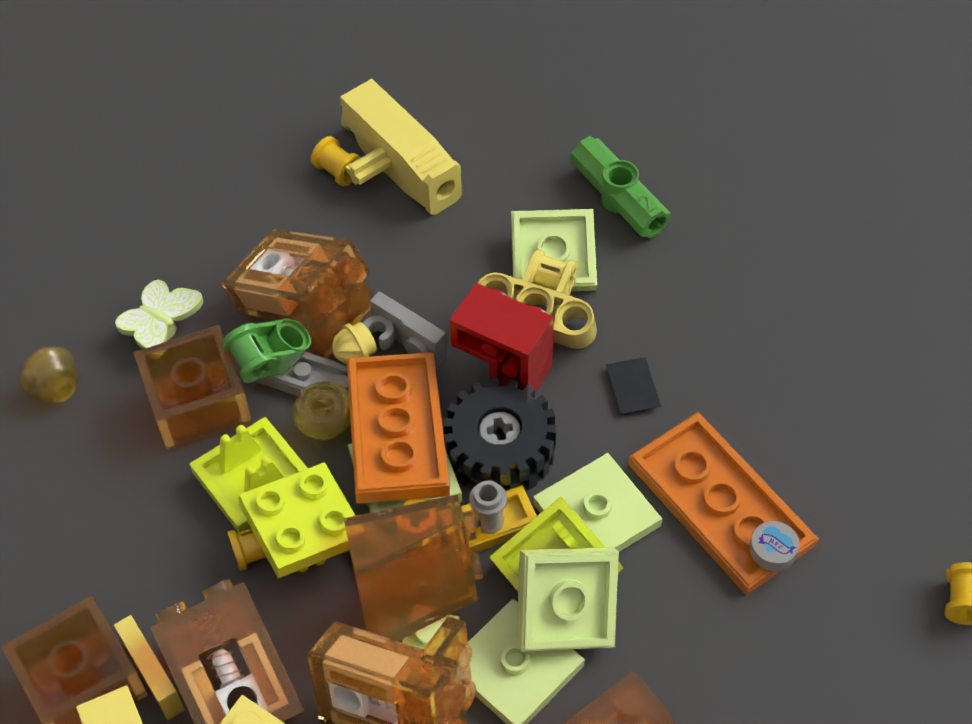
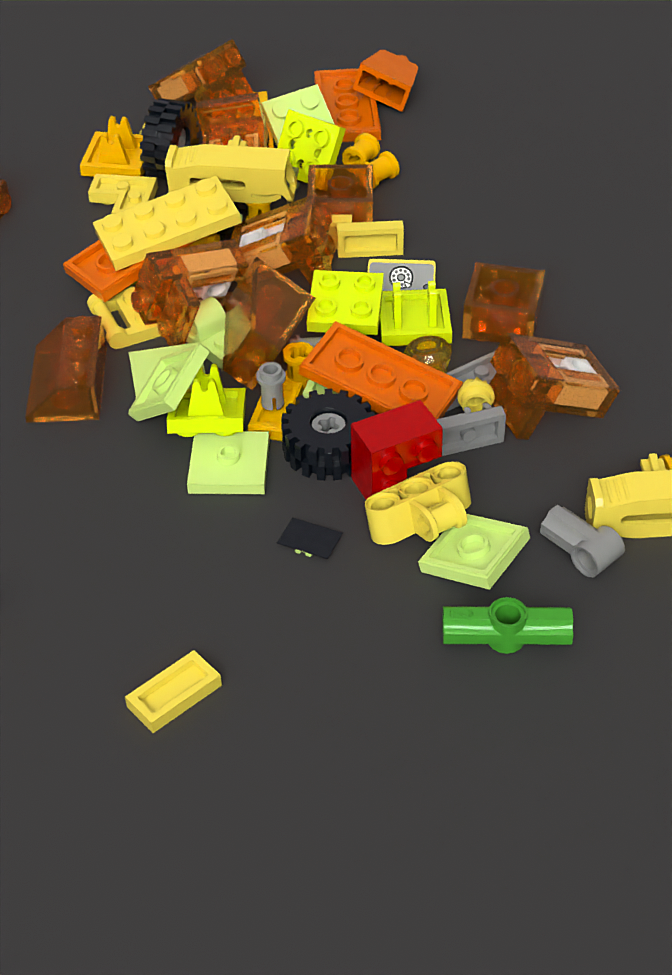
camera: 125 degrees right, 10 degrees down
(49, 375) = (575, 257): clear yellow cone -> none
(128, 595) = (370, 239): none -> light yellow tile
(157, 316) = (589, 315): yellowish green animal -> none
(192, 529) = (410, 273): none -> slope
(267, 347) = (491, 322): bright green piece -> none
(482, 182) = (589, 547): none -> light grey piece
(716, 497) = (170, 530): orange tile -> none
(774, 546) = (103, 518): light grey tile -> none
(879, 373) = (173, 691): none -> light yellow tile

